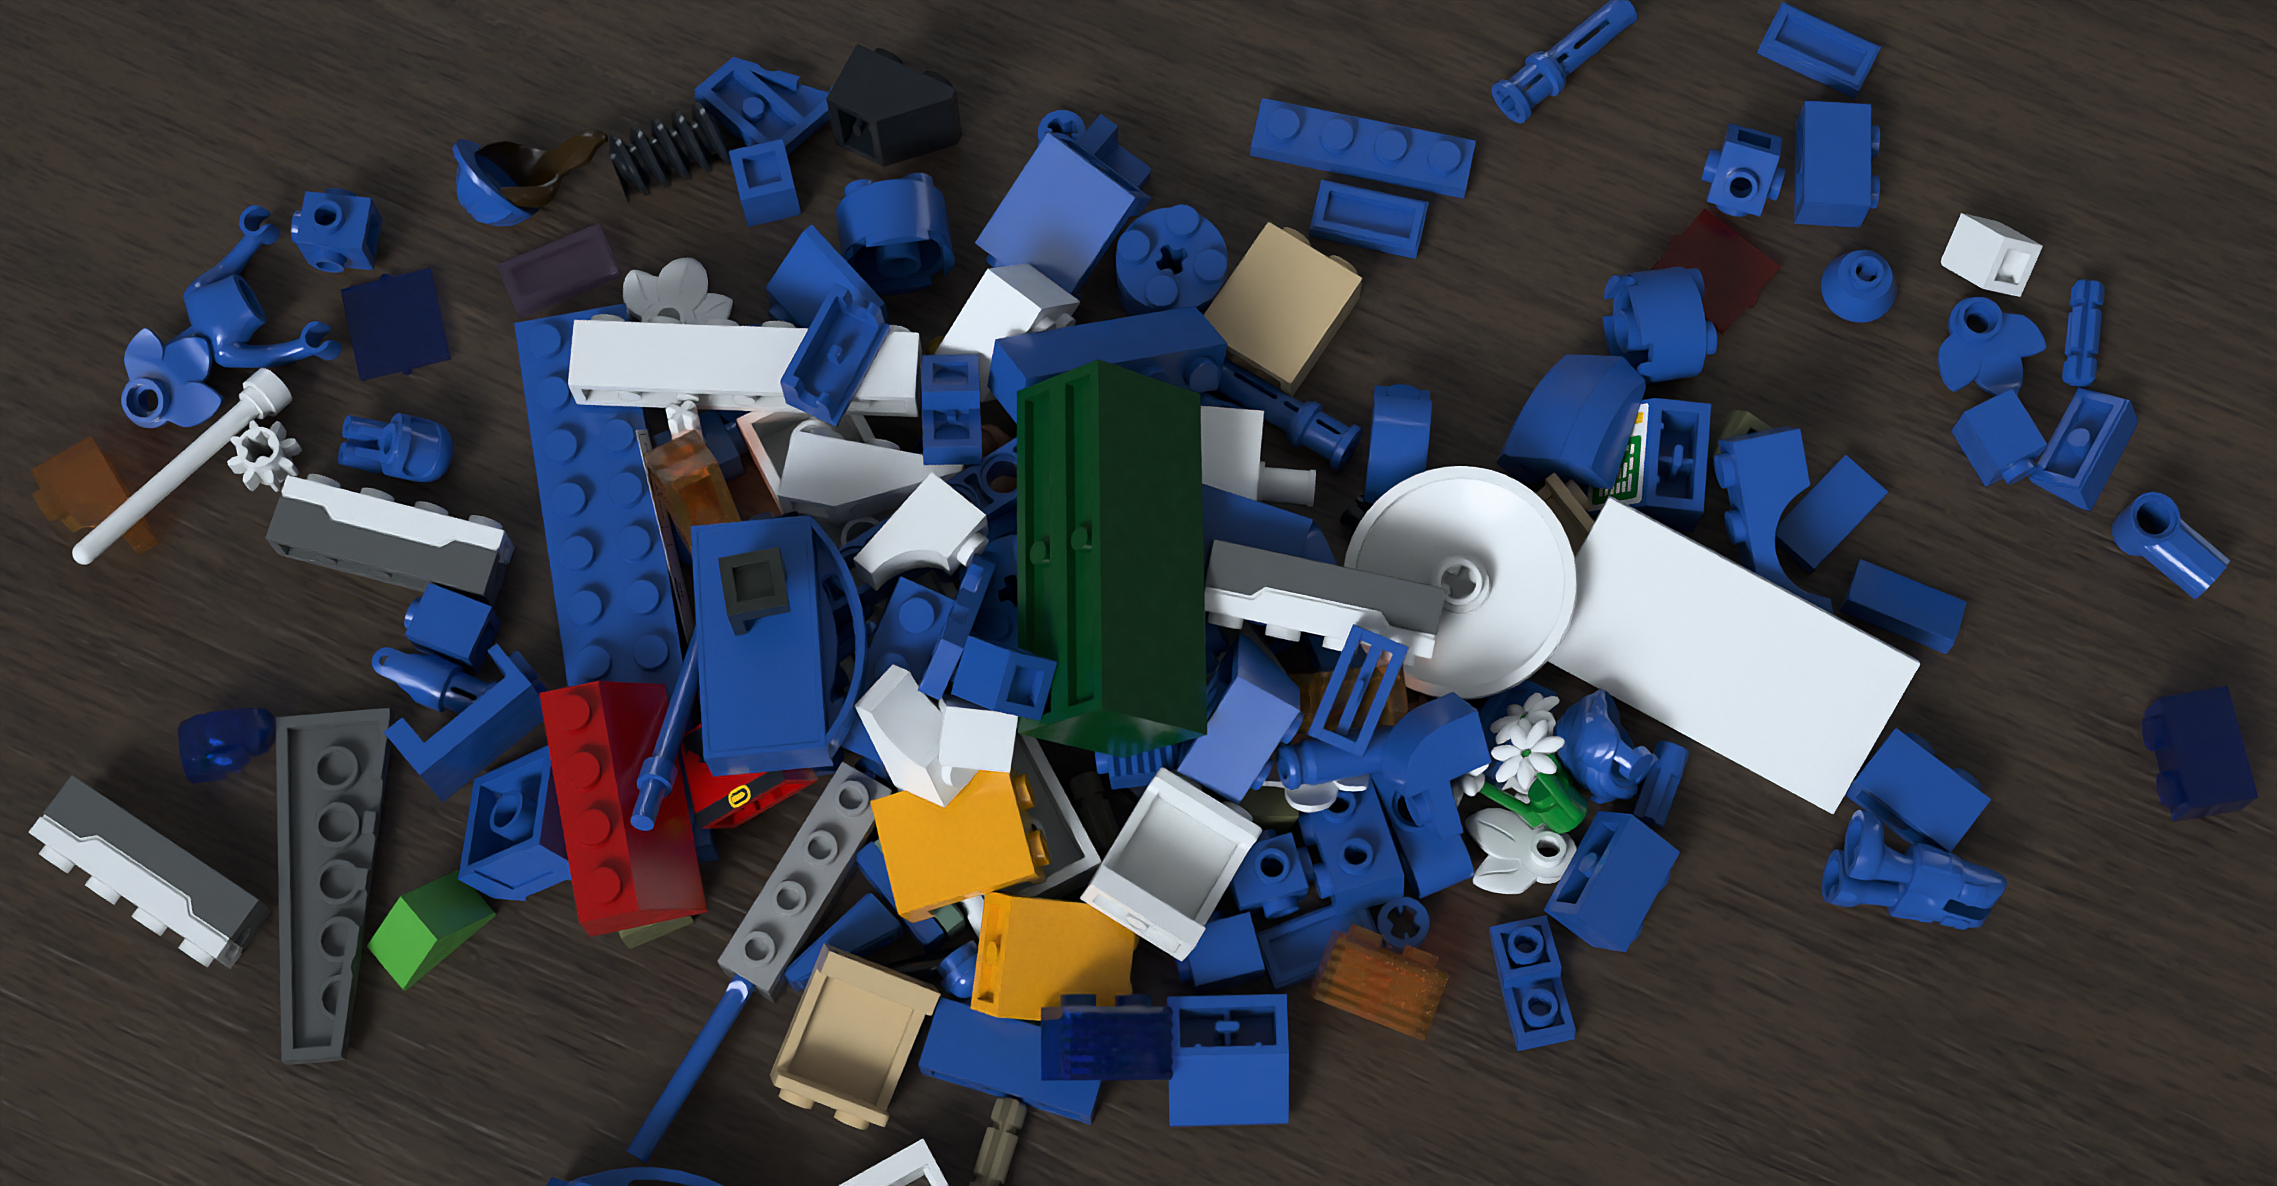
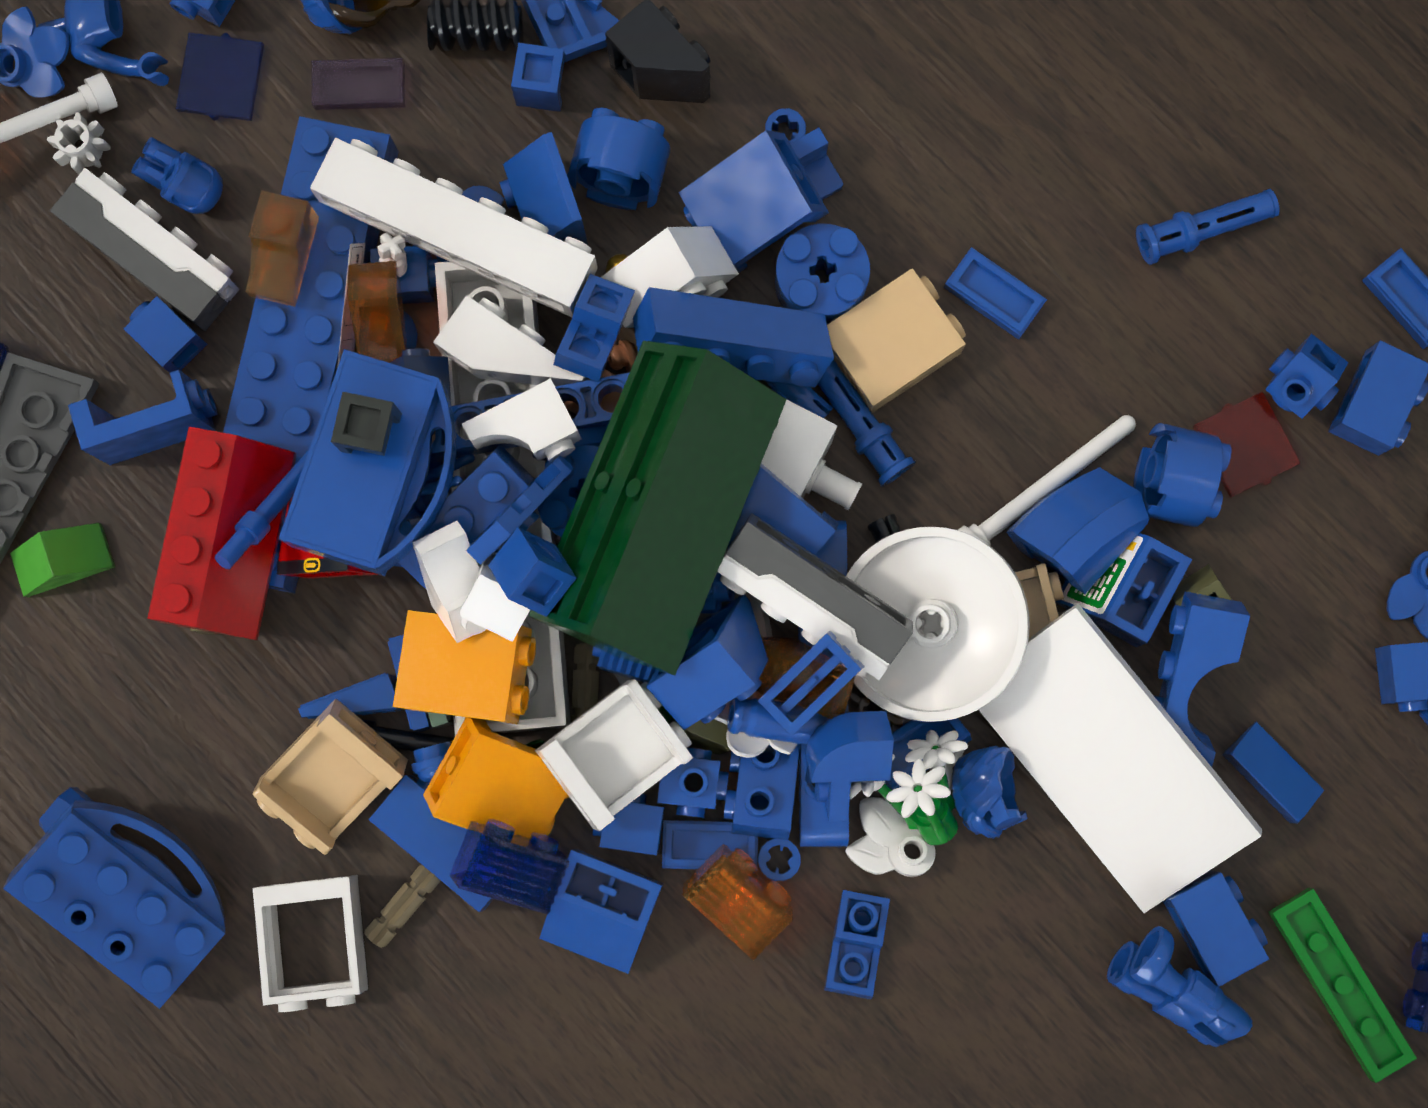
camera: 25 degrees right, 10 degrees up
(430, 679) = (133, 370): blue piece -> none
(515, 830) = (140, 511): blue slope -> none
(556, 466) = (280, 247): none -> clear orange arch
(676, 293) = (437, 140): white plate -> none
(781, 923) = (309, 670): light grey piece -> none
(834, 356) = (518, 250): blue hinge -> none
(1362, 148) = (1015, 234): blue plate -> none
(1397, 437) = (937, 483): blue brick -> none
(1527, 379) = (1052, 480): none -> white piece
(1612, 881) = (950, 897): blue brick -> none
(1661, 784) = (1021, 837): blue piece -> none
(1828, 514) = (1254, 676): blue tile -> none
(1859, 286) = (1346, 511): blue cone -> none
(2084, 801) = (1342, 985): none -> green plate

